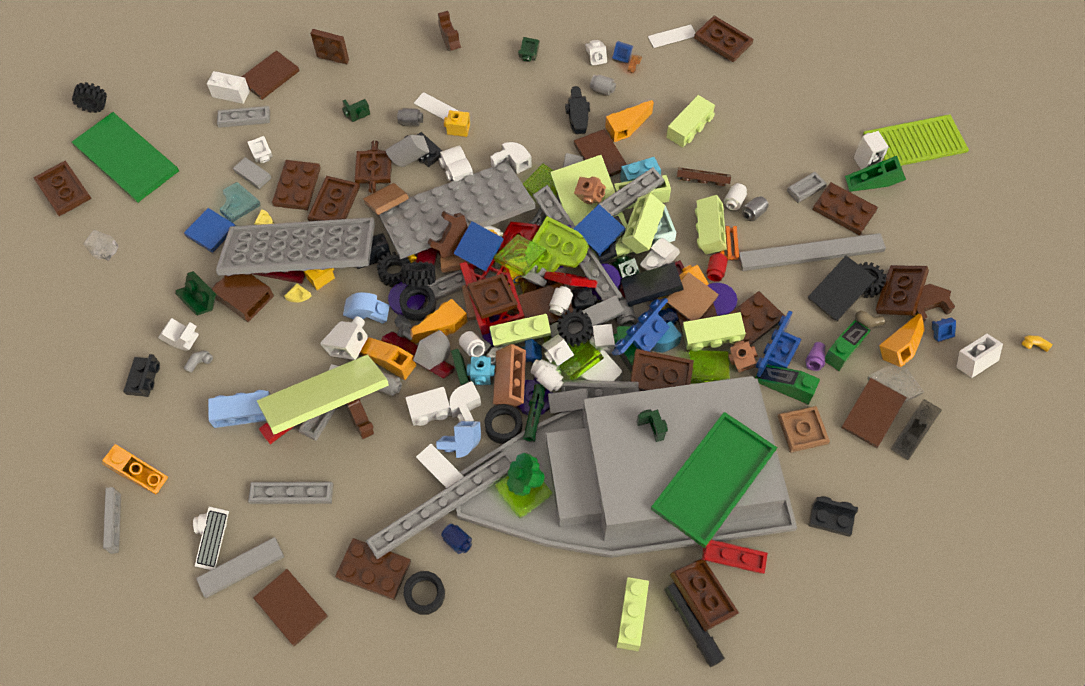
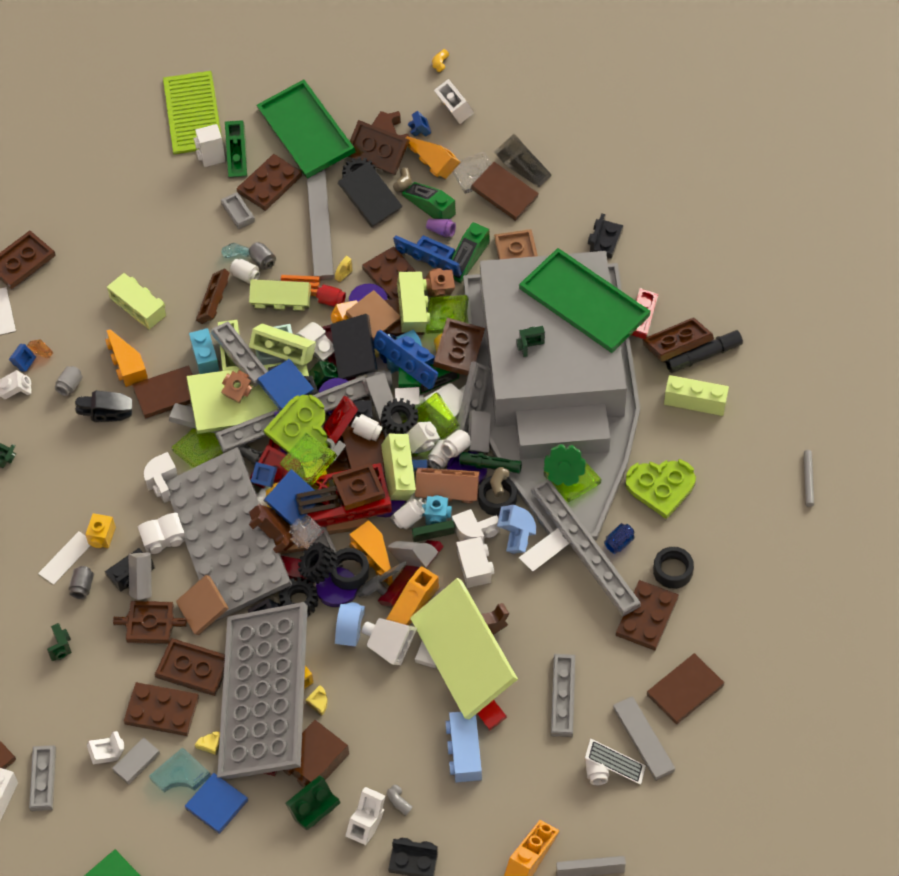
camera: 85 degrees left, 5 degrees down
(446, 260) = (305, 531): none -> clear brick
(469, 265) = (334, 497): none -> dark brown tile
(507, 225) = (263, 474): none -> blue tile
(510, 417) = (499, 475): none -> dark tan arm
(521, 580) = (662, 485): none -> lime plate
(750, 275) = (343, 269): none -> light yellow tile
(759, 186) = (234, 249): none -> clear light blue arm
(913, 229) = (306, 128): none -> green tile

